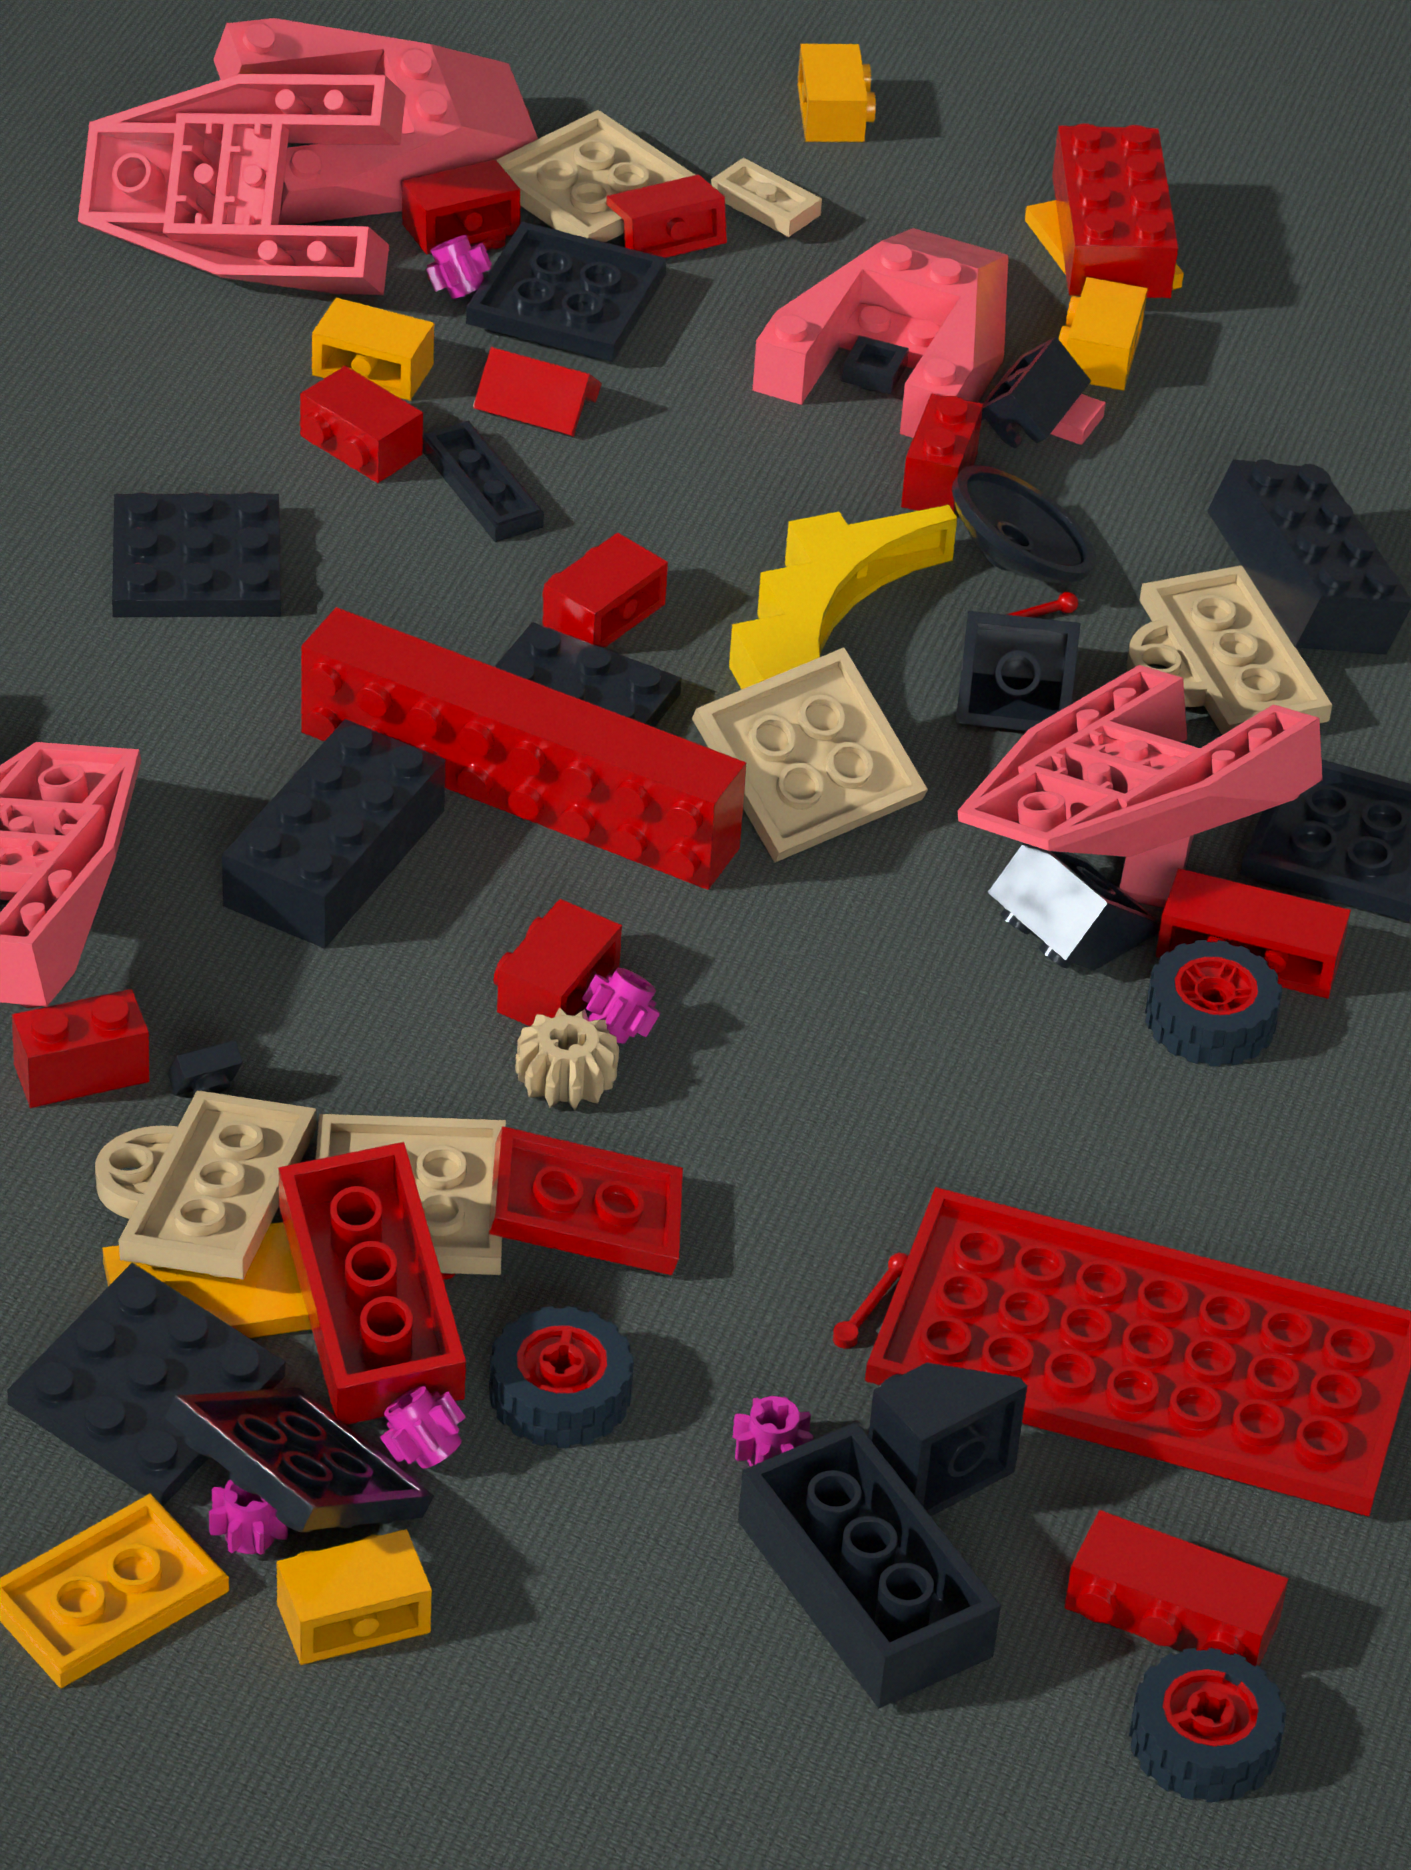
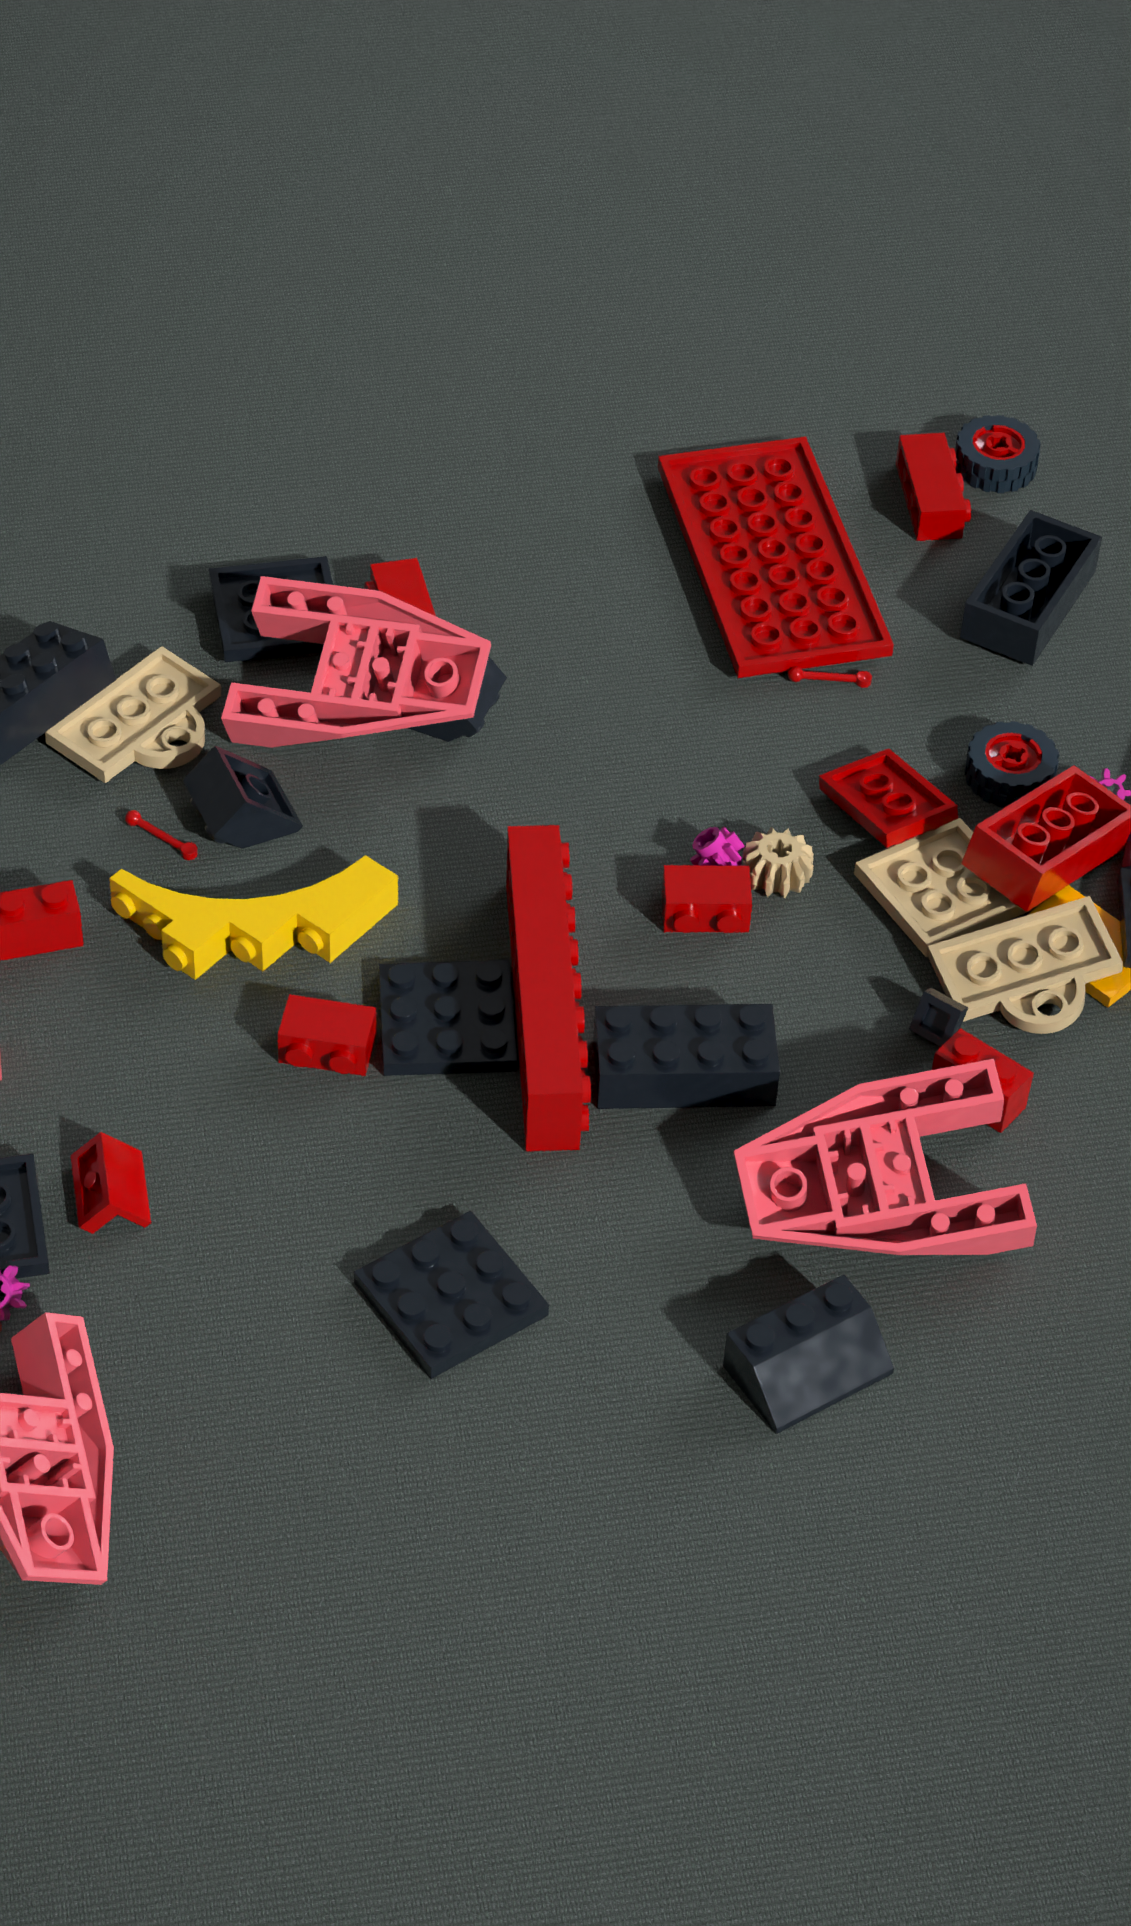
camera: 120 degrees left, 5 degrees up
(361, 424) = (240, 1260): red brick -> none
(376, 343) = (139, 1299): light orange brick -> none
(482, 481) = (236, 1175): black tile -> none
(770, 1429) = (974, 663): dark pink gear -> none
(813, 754) = (426, 848): tan plate -> none
(948, 1430) = (930, 582): black slope -> none
(1021, 527) = (98, 840): black dish -> none
(1213, 1003) = (483, 608): black wheel -> none

